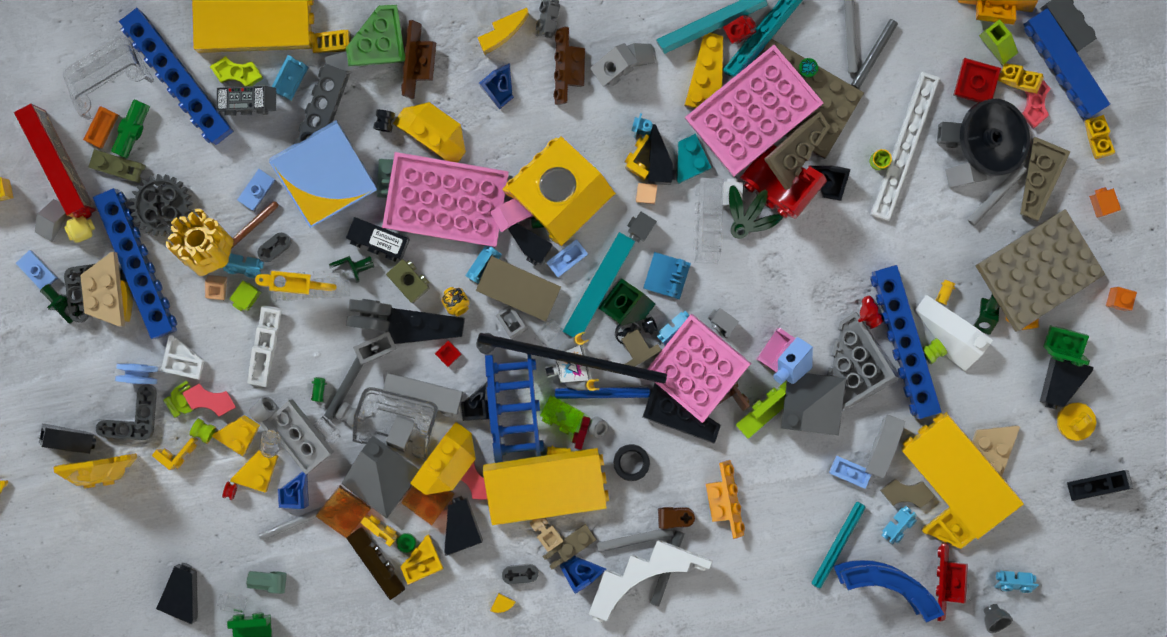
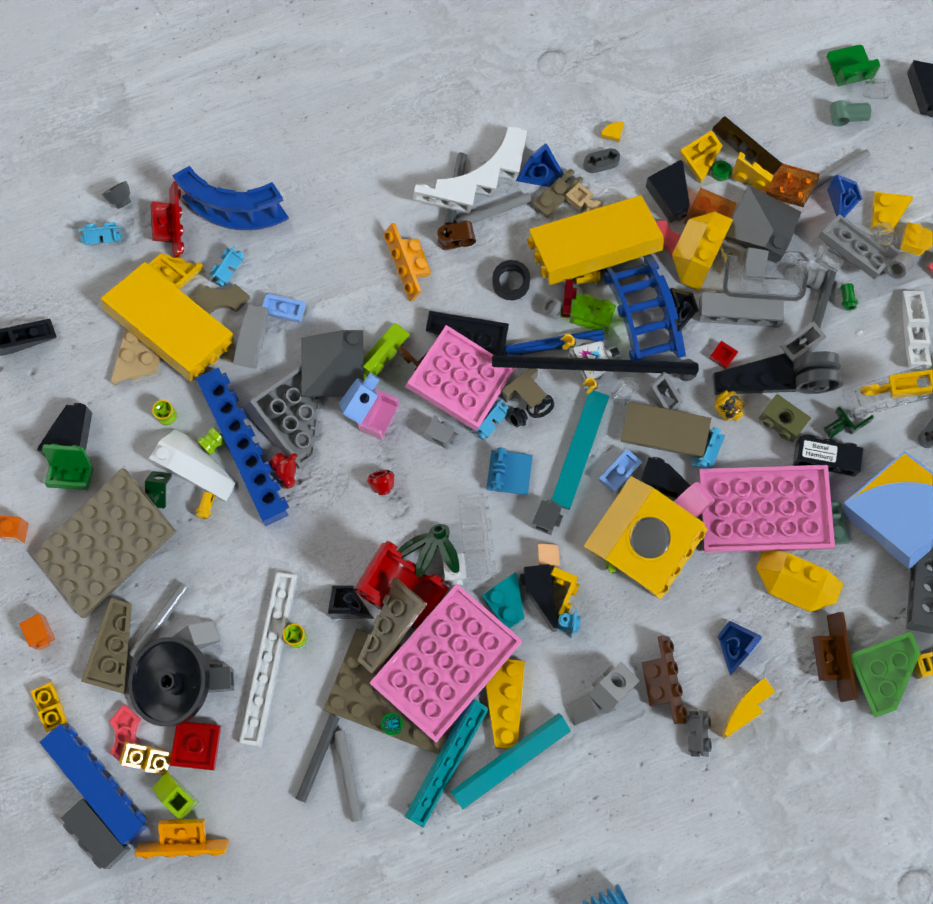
camera: 175 degrees right, 15 degrees down
(230, 490) = (910, 187): red bush -> none
(384, 120) = (854, 583): black wheel -> none
(626, 304) = (547, 433): dark green slope -> none
(740, 29) = (477, 756): red brick -> none
(784, 285) = (381, 481): none -> red cone
(838, 545) = (285, 239): teal axle -> none
(974, 389) = (161, 409): none -> lime wheel
(1076, 421) = (50, 397): yellow tile -> none

